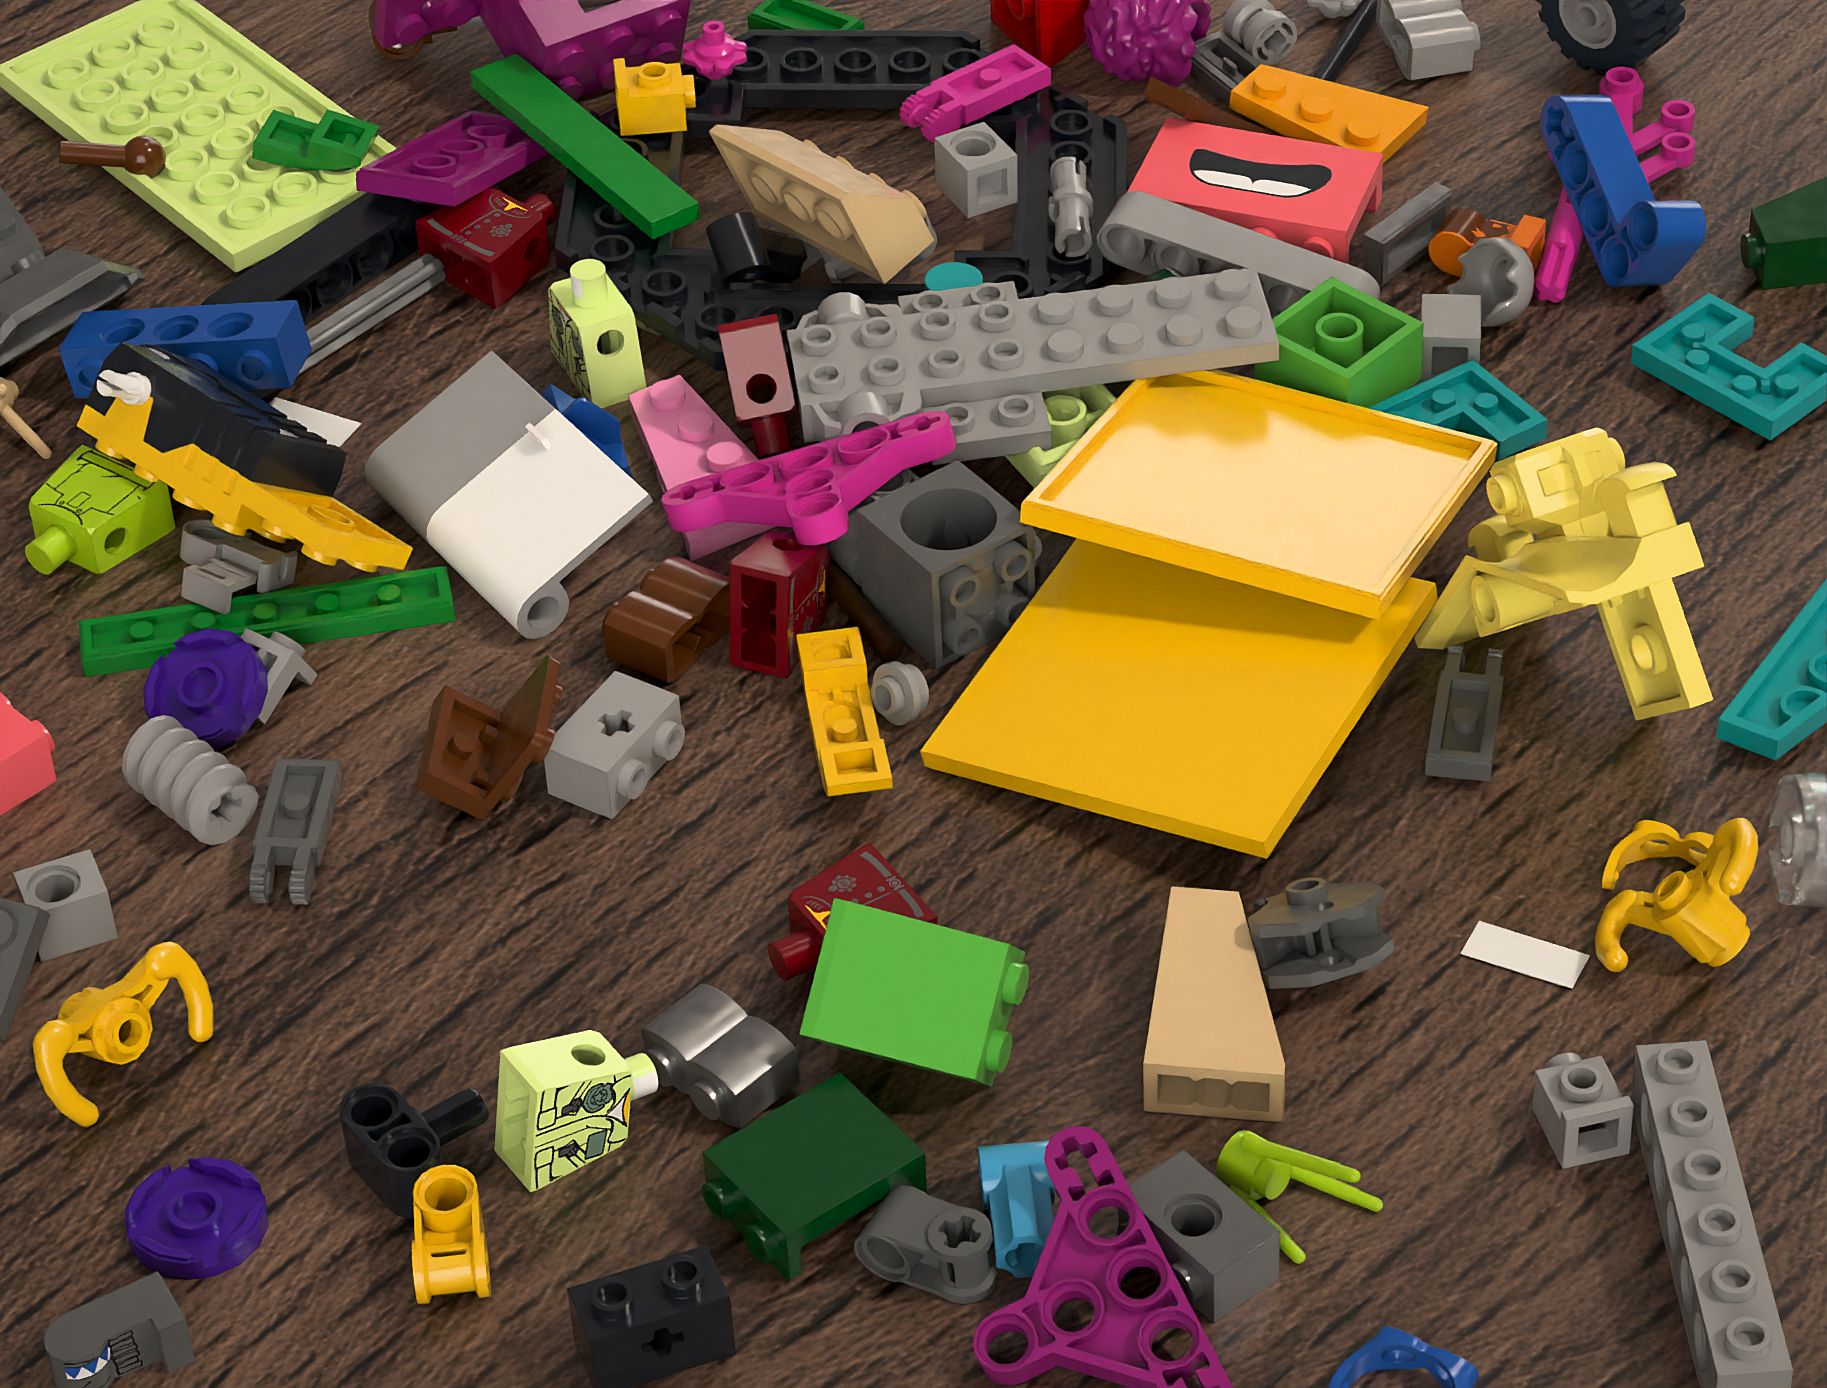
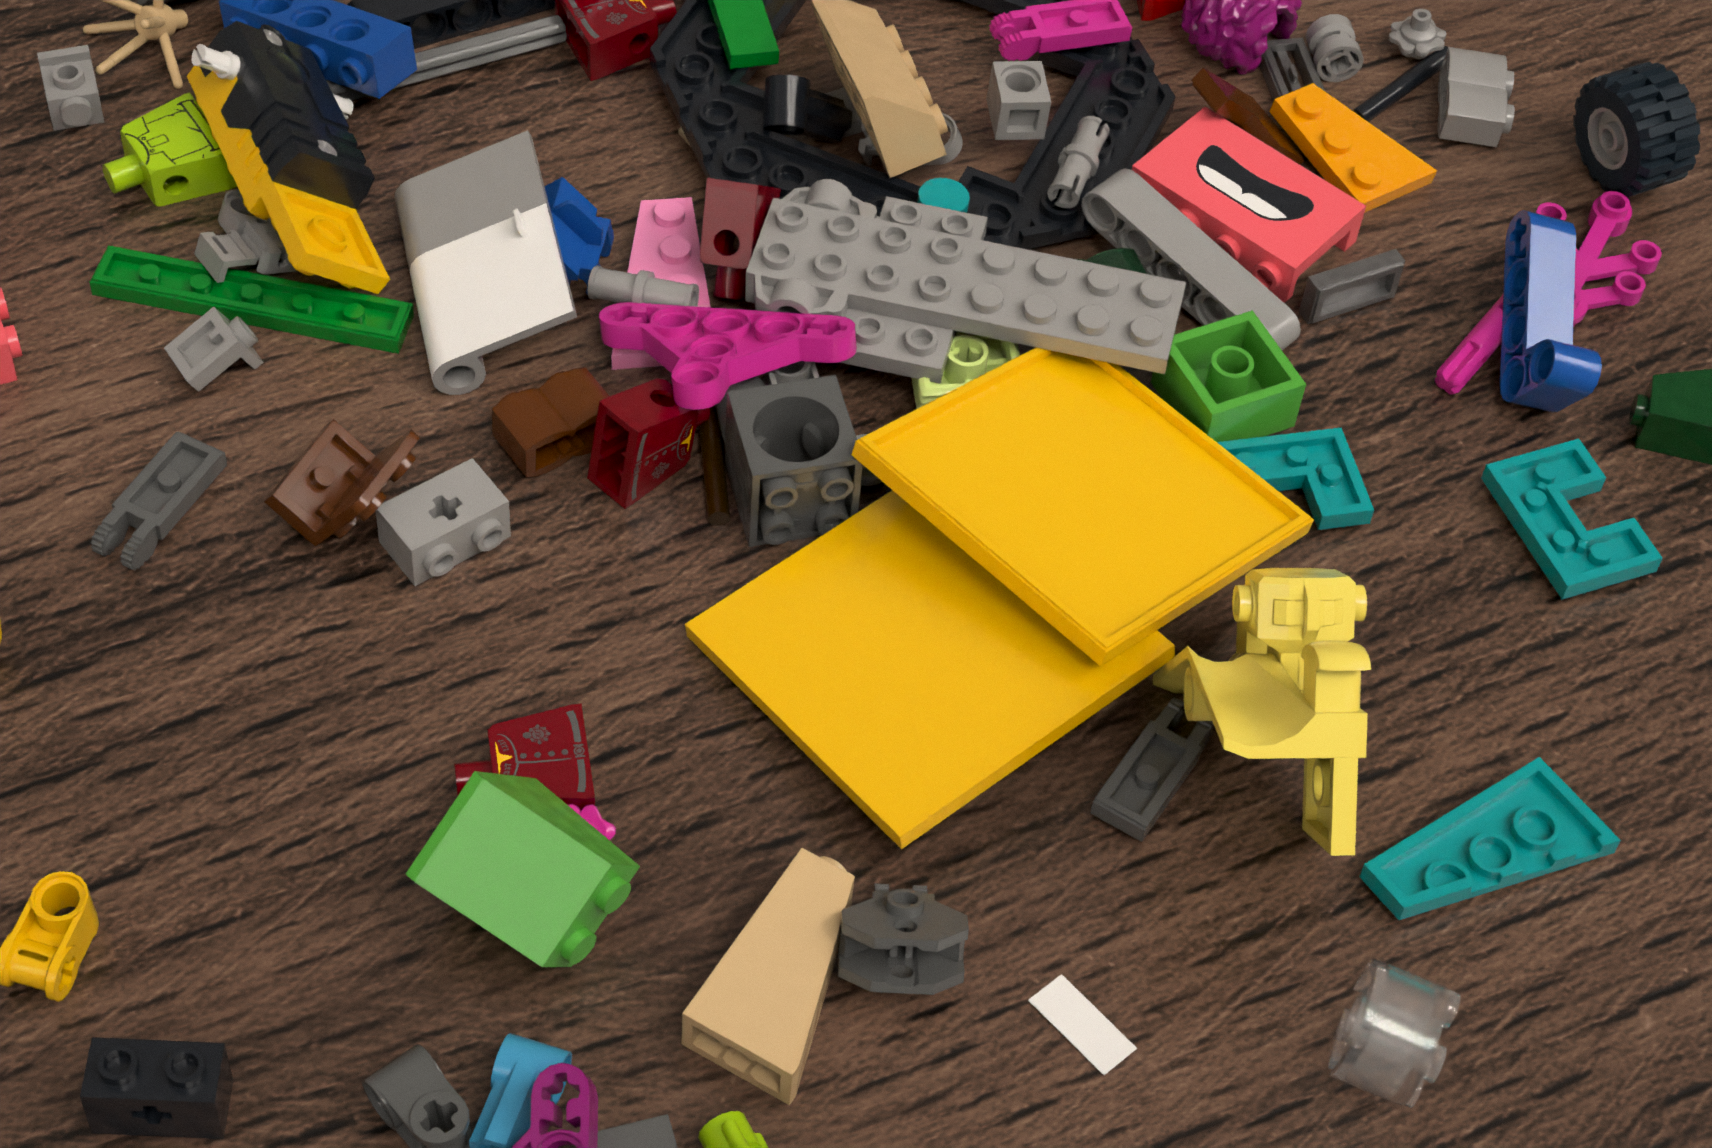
camera: 15 degrees right, 10 degrees up
(189, 780) = (98, 425): light grey piece -> none
(209, 685) = (160, 347): dark purple tile -> none
(329, 426) = (388, 130): white sticker -> none
(395, 1143) = (71, 829): black beam -> none
(565, 1104) = (208, 850): yellowish green torso -> none
(591, 312) = (638, 119): yellowish green torso -> none
(669, 470) = (639, 288): none -> light grey pin
(720, 1056) = (359, 853): flat silver brick -> none
(807, 1170) = (364, 996): dark green panel -> none
(842, 712) = (642, 568): yellow slope -> none
(899, 692) = (697, 562): light grey plate -> none
(1449, 332) = (1334, 396): light grey brick -> none
(1465, 227) = (1415, 325): orange leg -> none
(1502, 277) = (1397, 363): light grey hair -> none
(1638, 847) = (1250, 959): yellow cap -> none
(1689, 905) = (1235, 1049): yellow piece -> none

